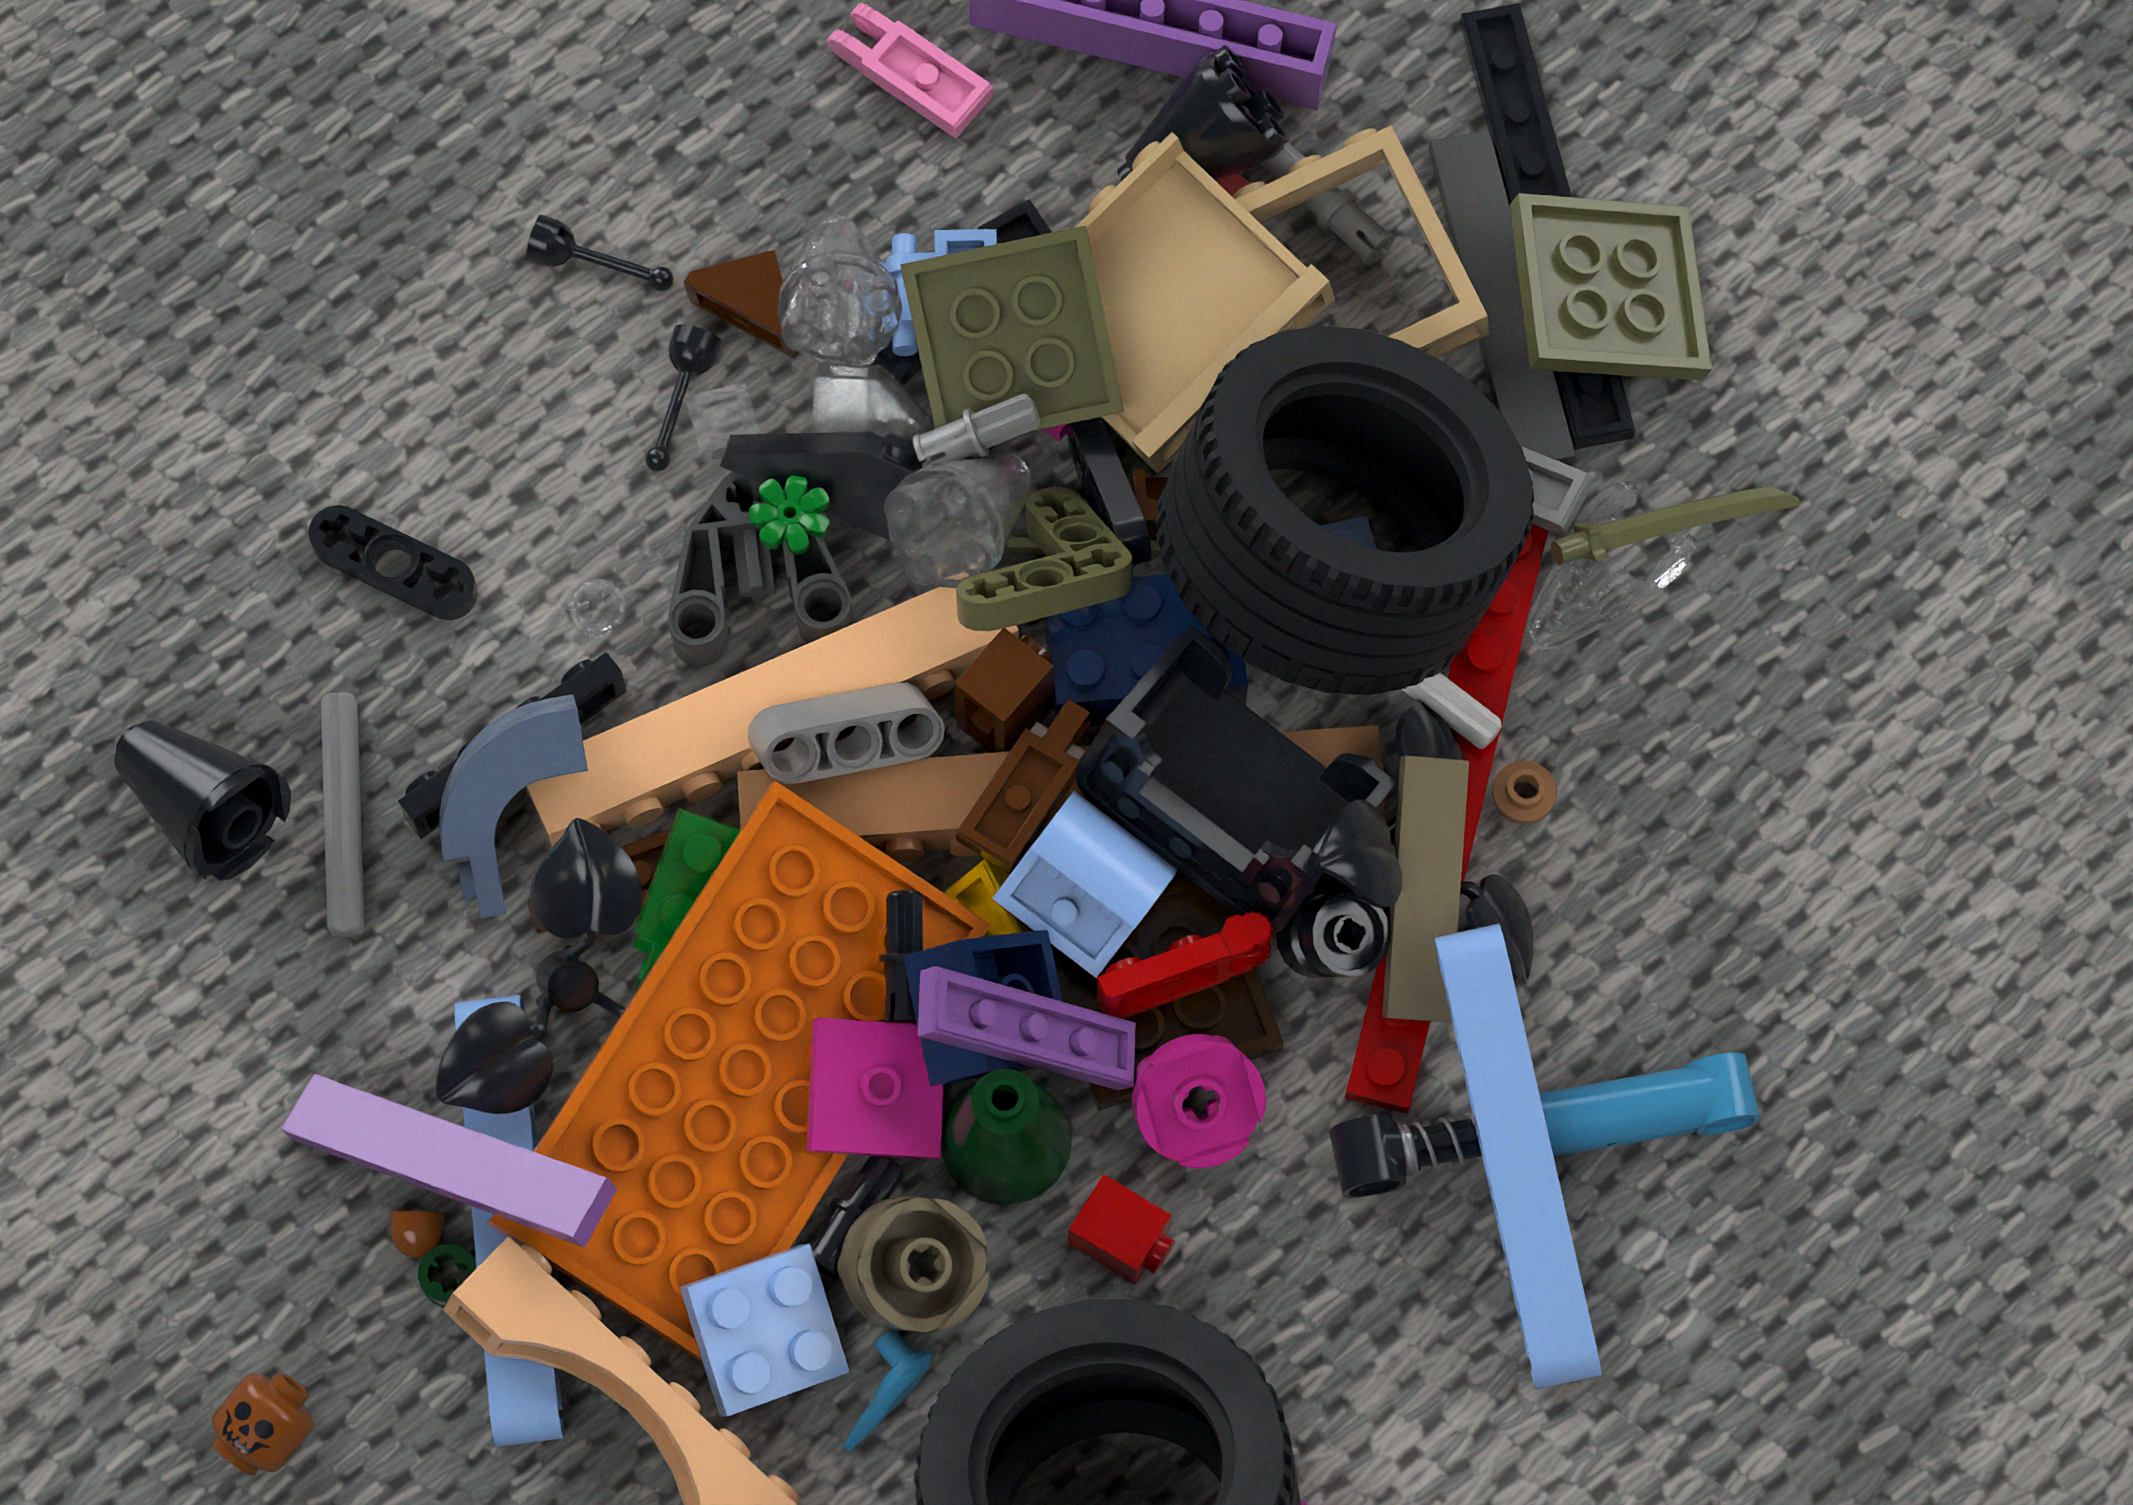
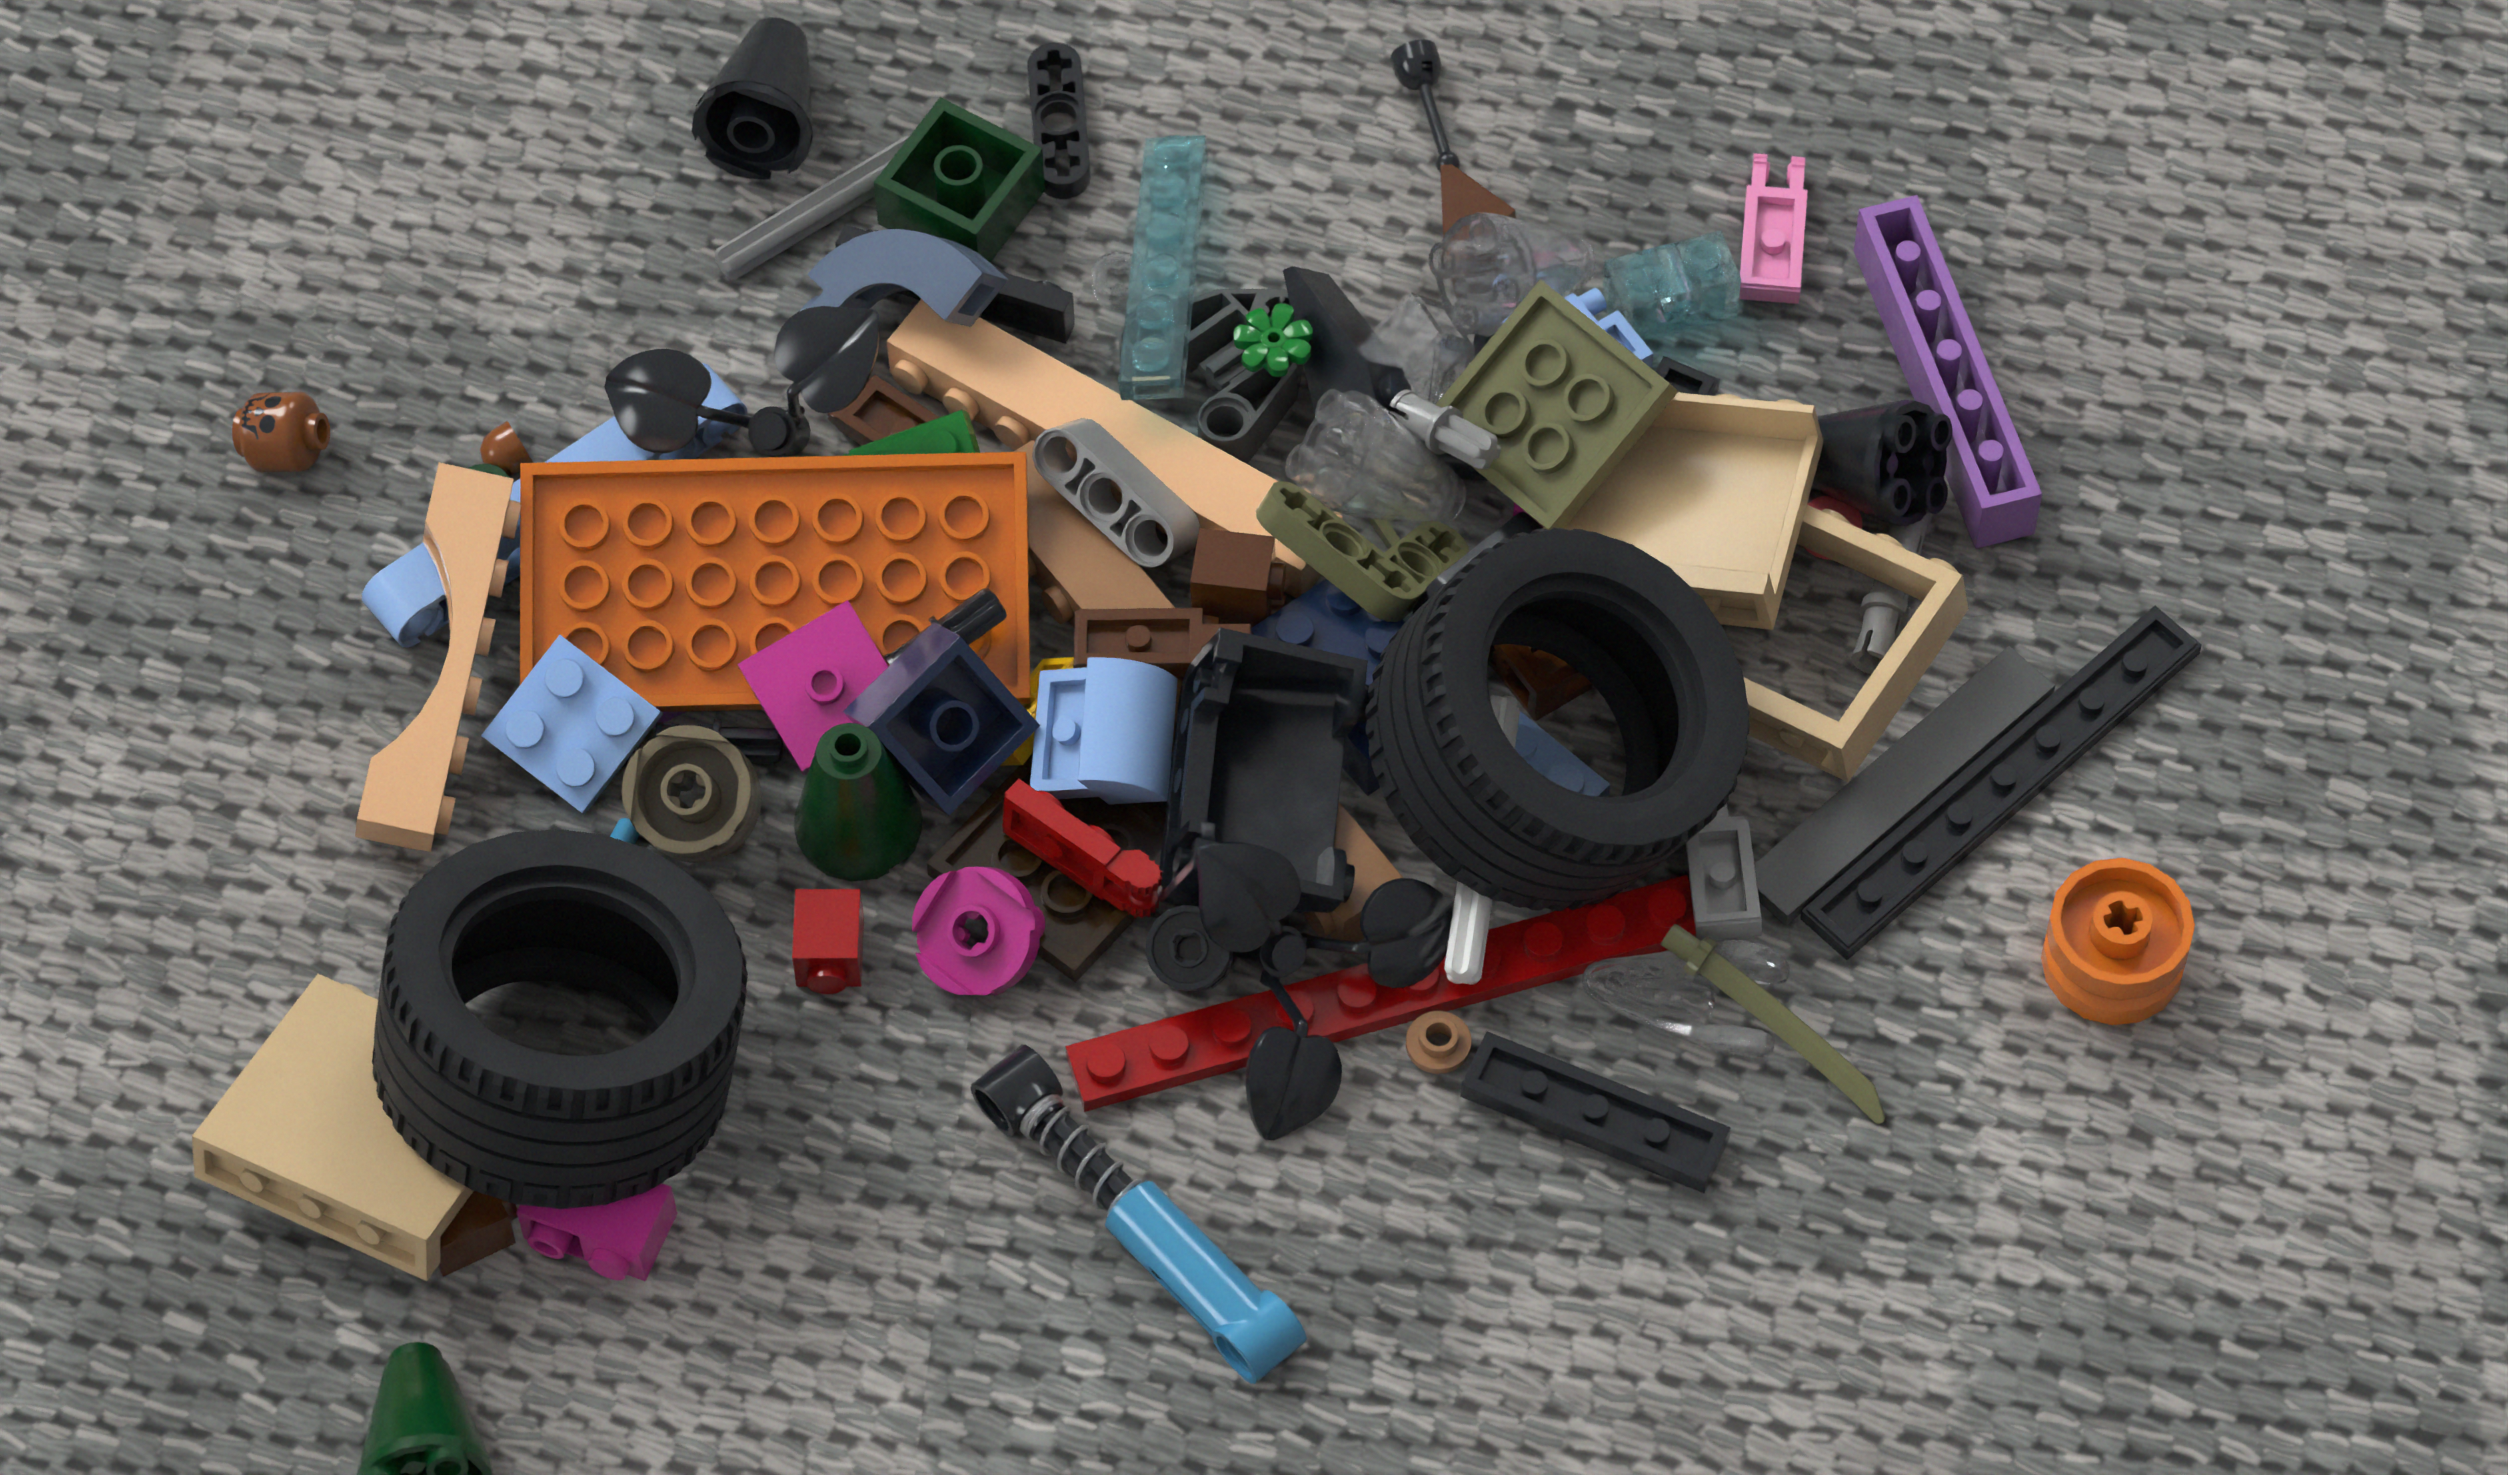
camera: 60 degrees right, 10 degrees down
(419, 681) = (960, 180): none -> dark green brick
(450, 1160) = (558, 415): tile -> none
(633, 562) = (1163, 268): none -> clear light blue plate
(691, 353) = (1391, 219): black hinge -> none
(719, 415) = (1353, 268): clear plate -> none
(924, 176) = (1674, 286): none -> clear light blue brick
(1026, 1028) = (928, 741): medium lavender tile -> none
(1430, 858) = (1271, 986): dark tan tile -> none
(1517, 1156) = (1076, 1185): light blue beam -> none
(1610, 287) = (1961, 849): olive plate -> none
(1665, 710) = (1595, 1112): none -> black plate
(1762, 227) = (2117, 941): none -> orange wheel

